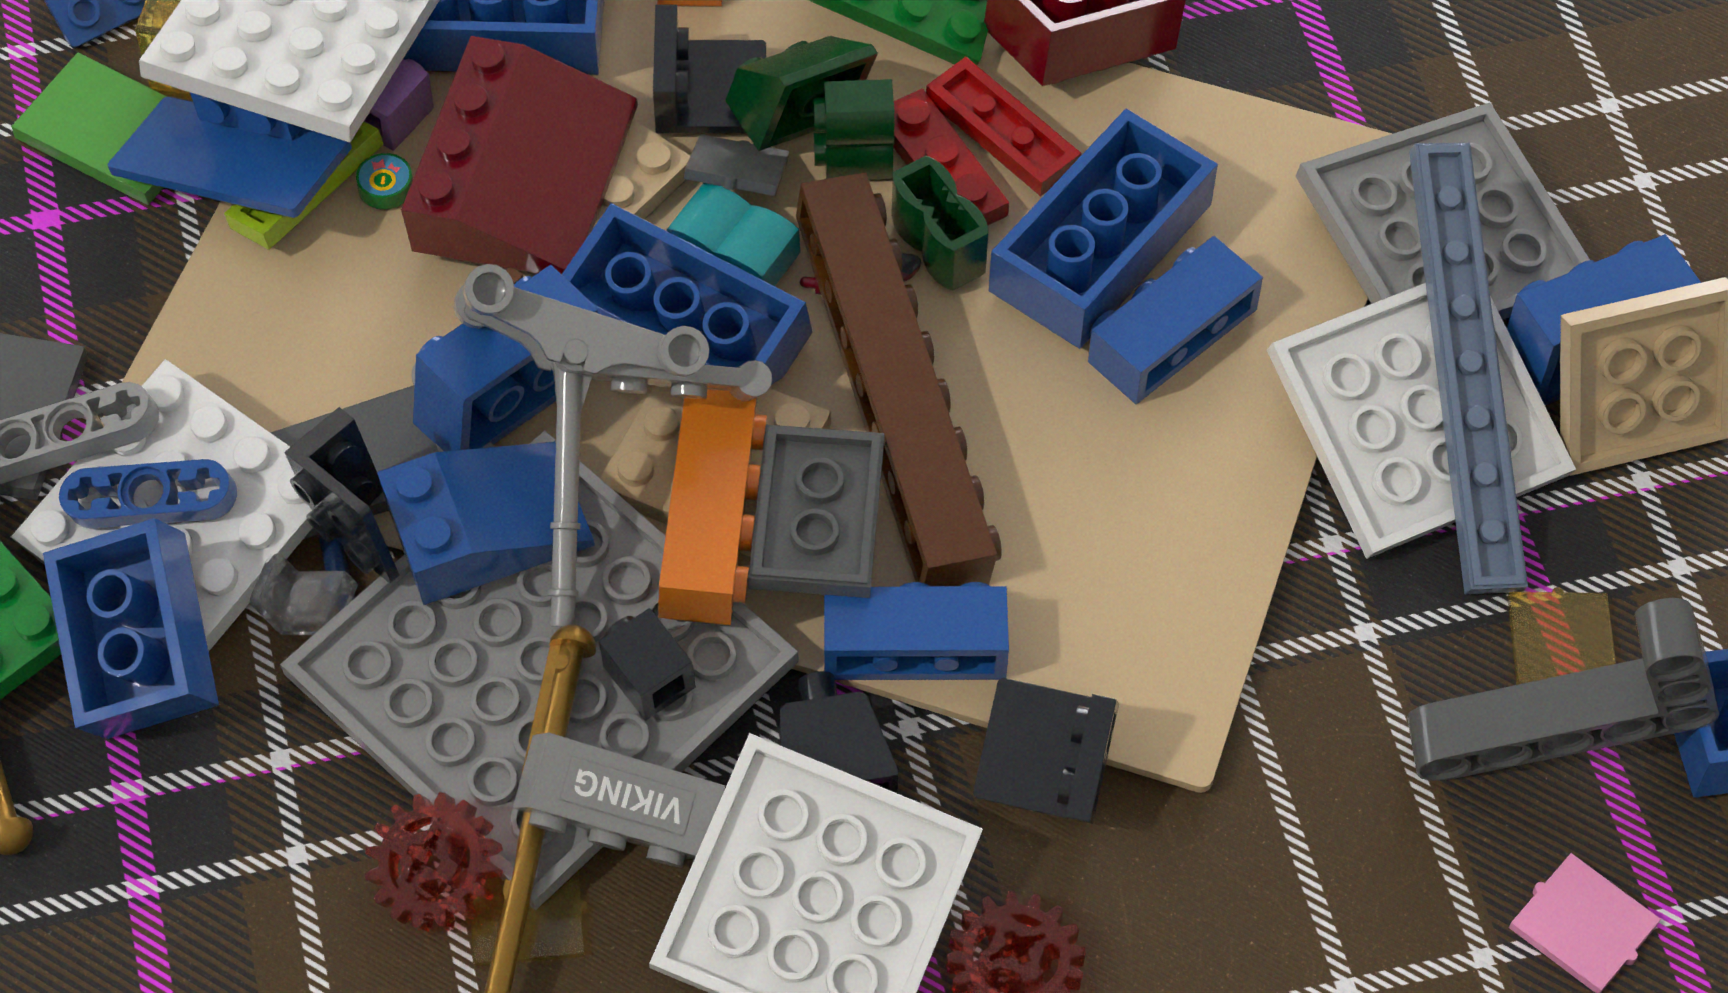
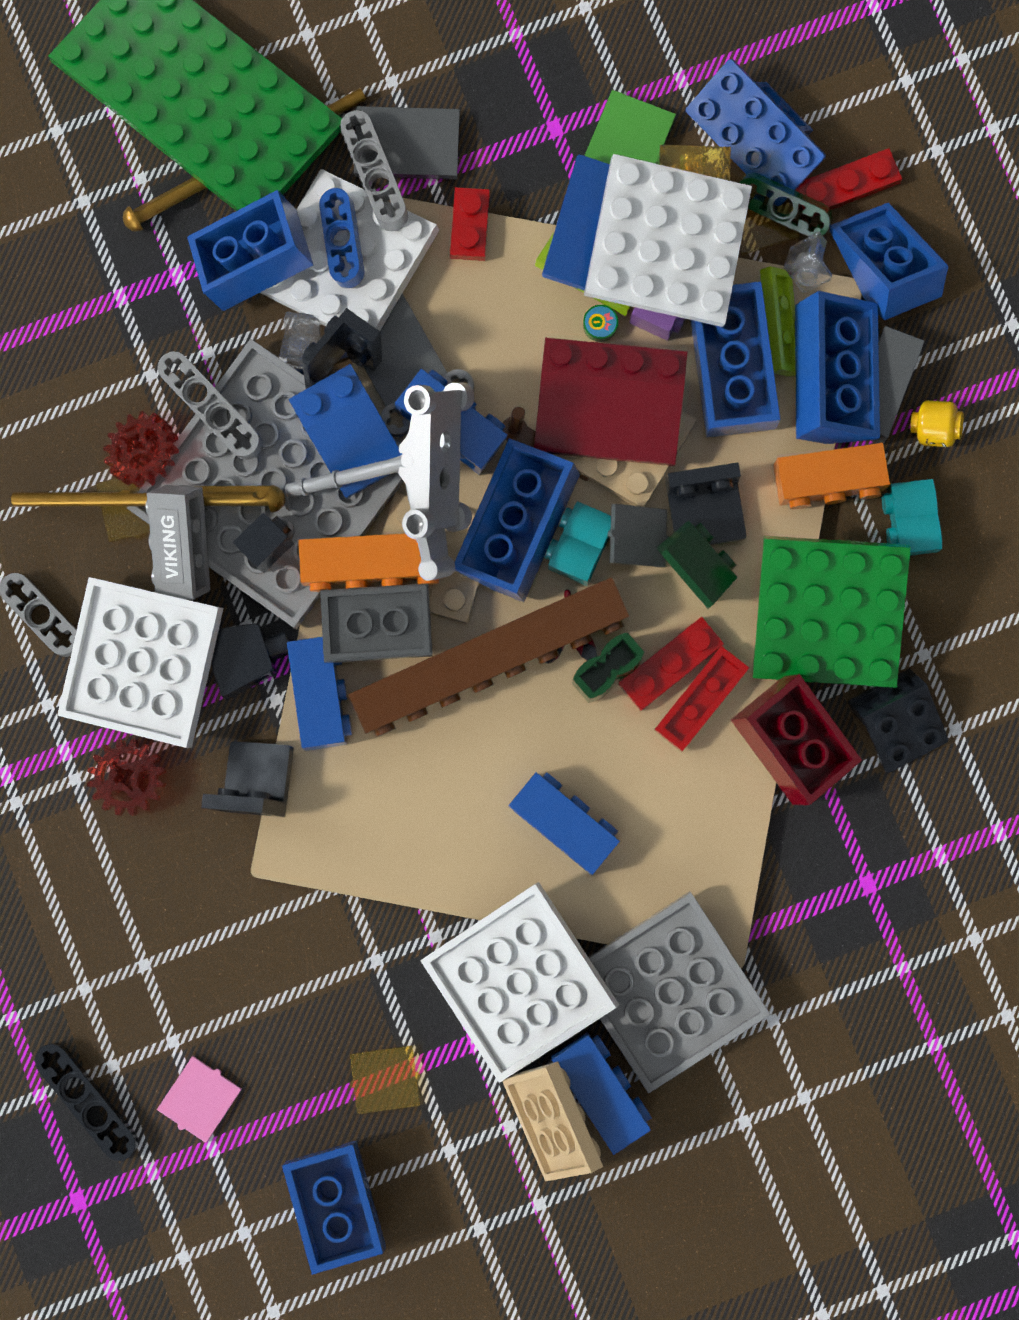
camera: 90 degrees right, 25 degrees up
(173, 332) = (469, 224): none -> red plate
(390, 741) = (206, 408): none -> light grey beam
(856, 128) = (667, 605): dark green brick -> none
(1102, 227) = (620, 770): blue brick -> none
(1468, 369) = (548, 1007): sand blue tile -> none
(1576, 711) = (312, 1130): dark grey beam -> none

